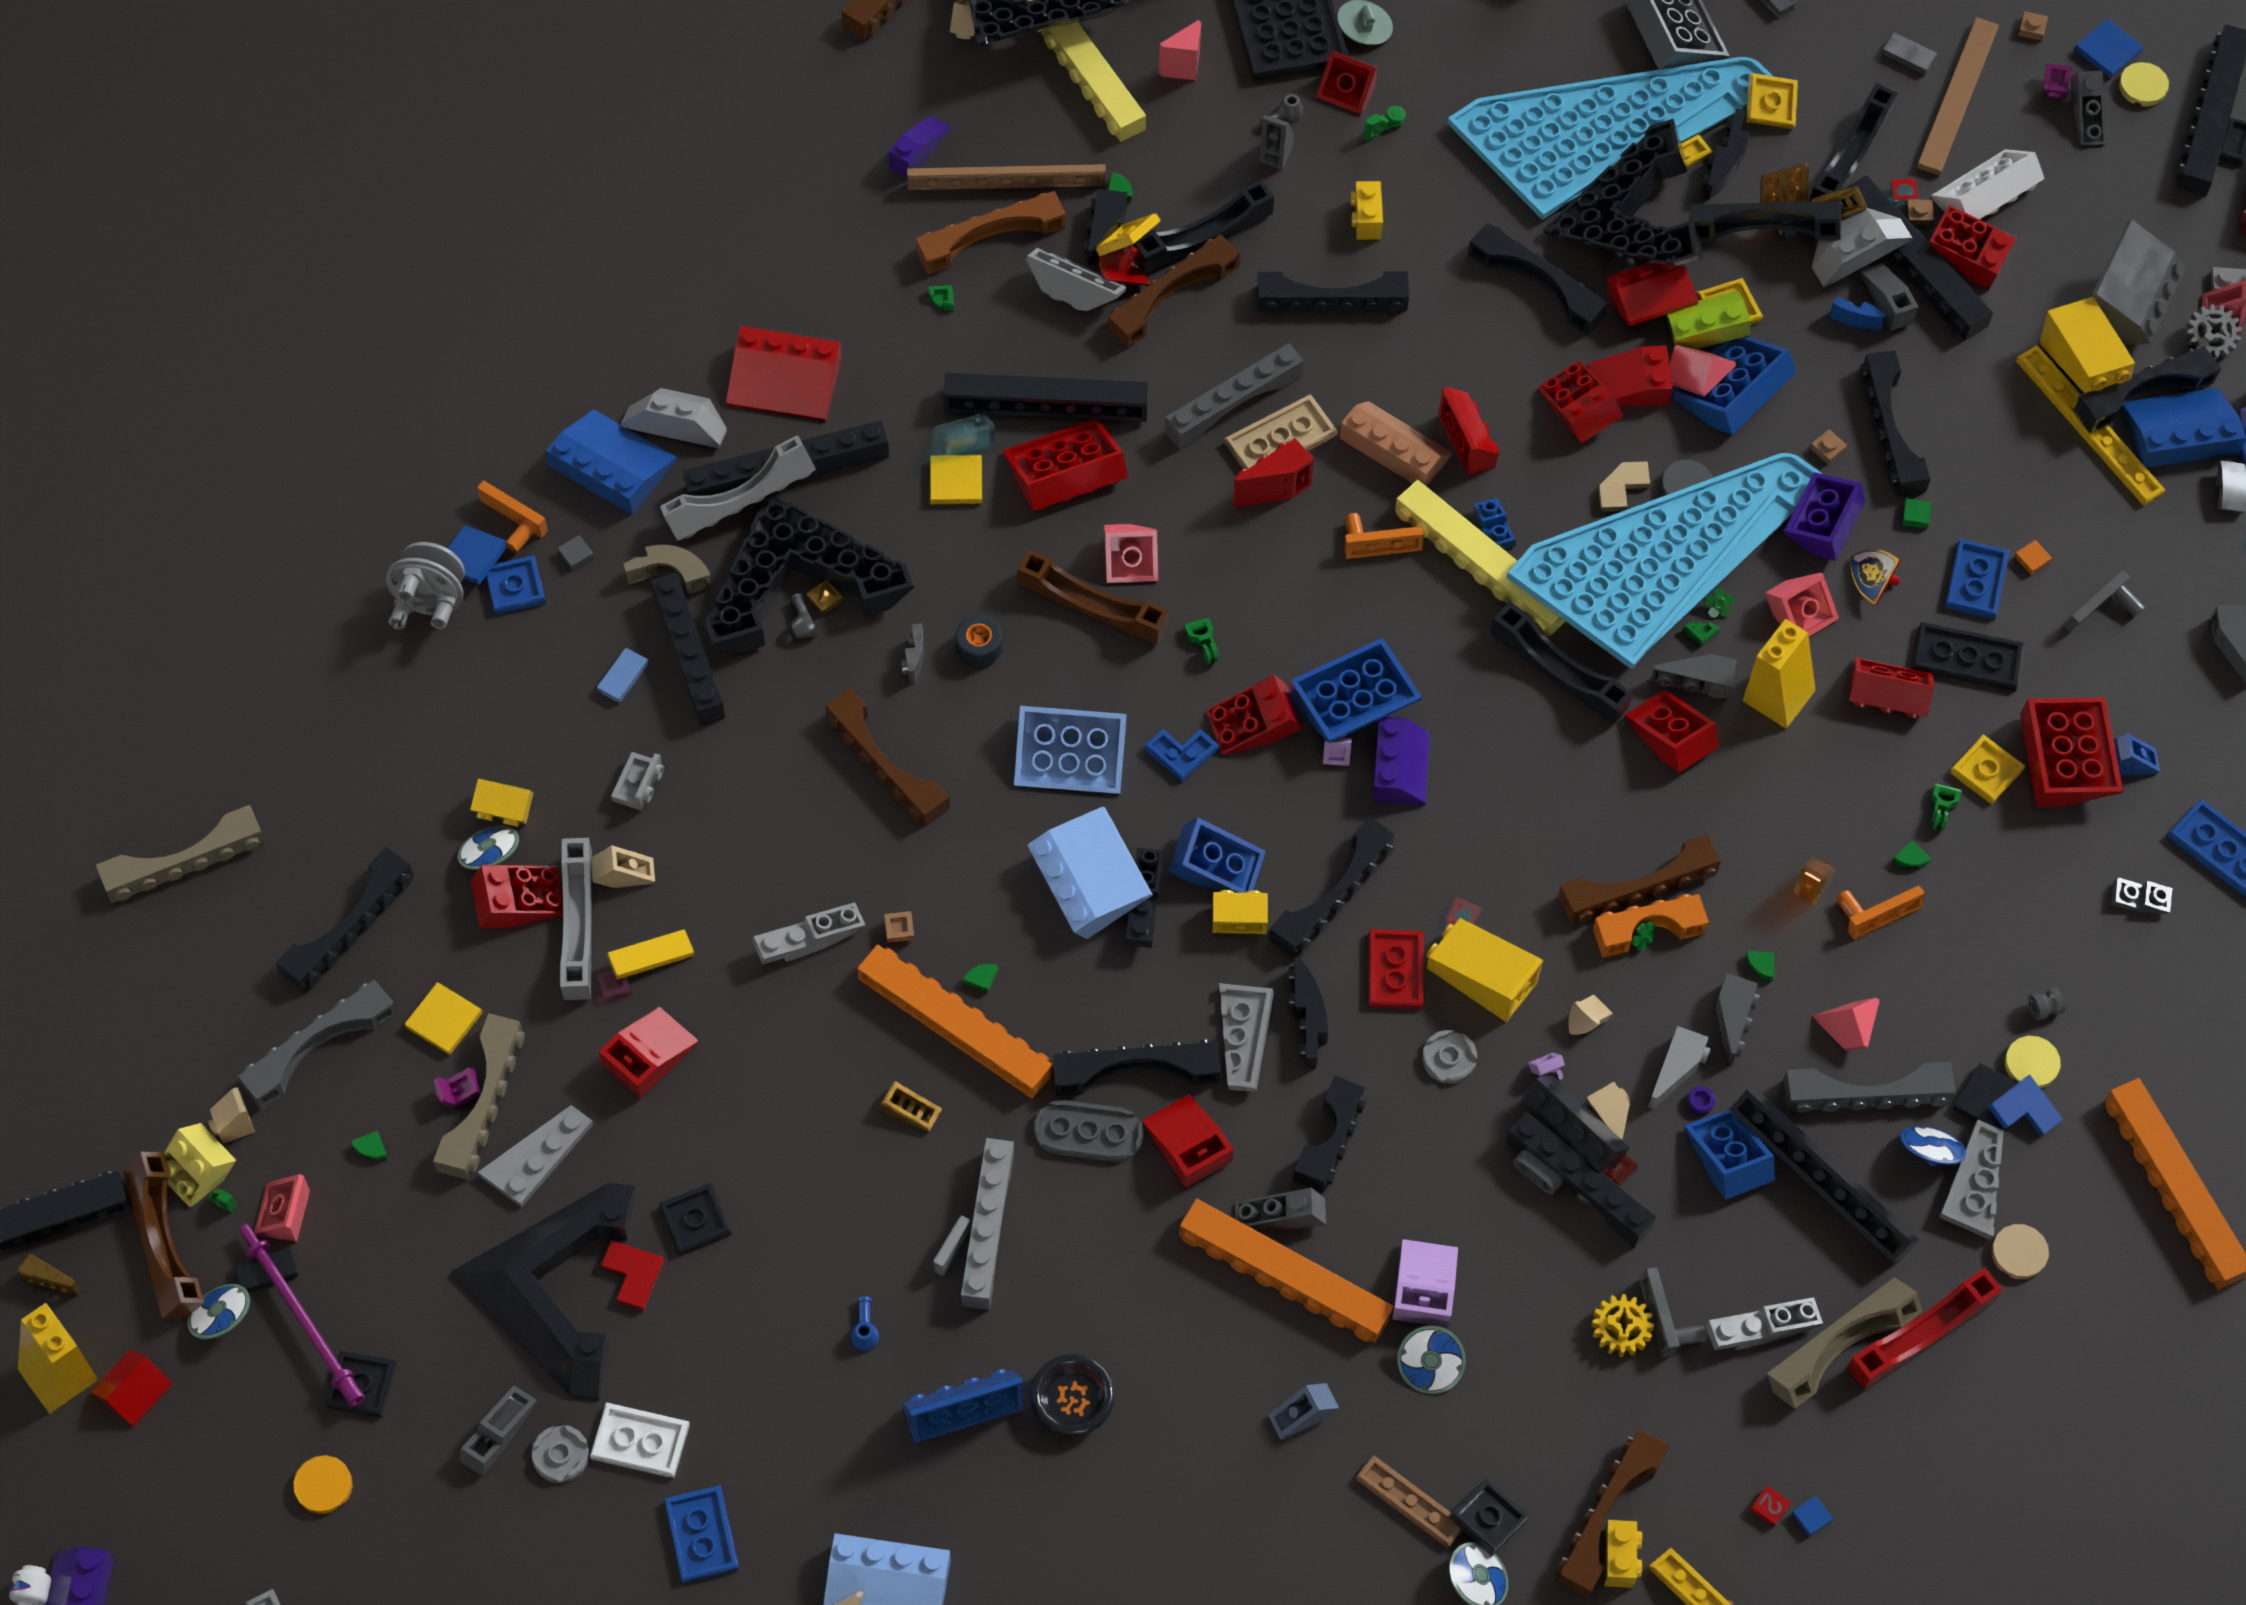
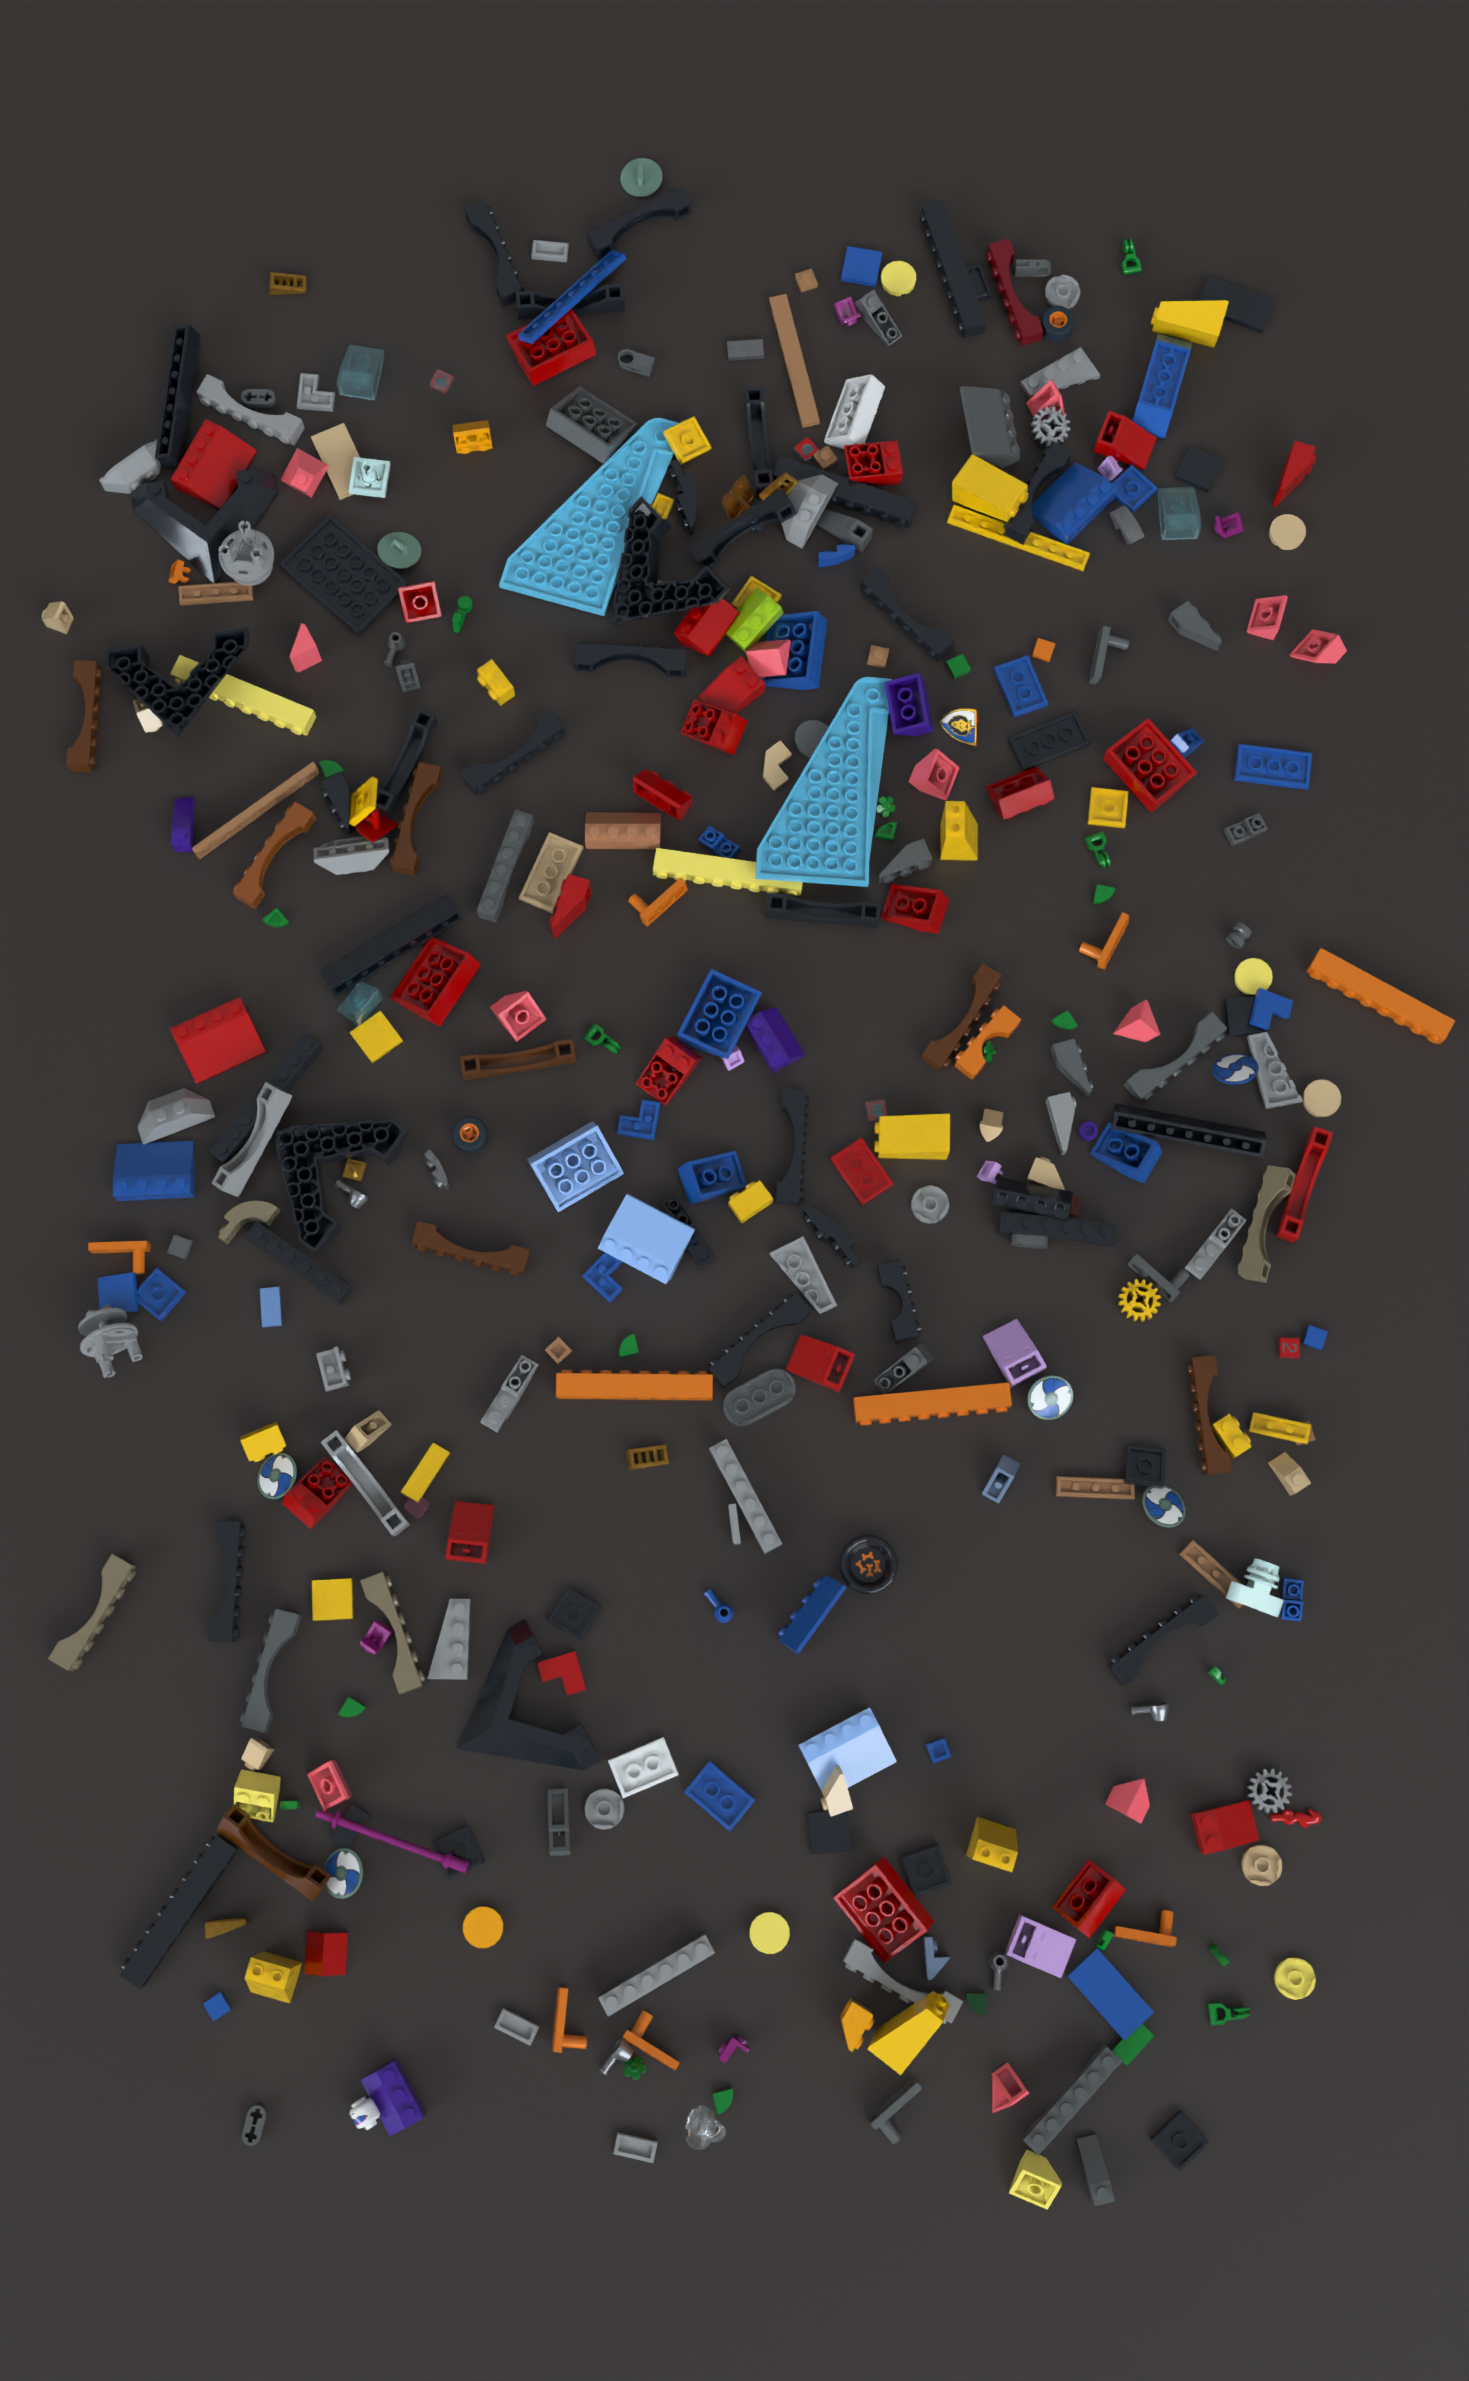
camera: 35 degrees left, 15 degrees up
(1007, 882) = (599, 1276): none -> blue tile
(1814, 879) = (1060, 948): clear orange slope -> none

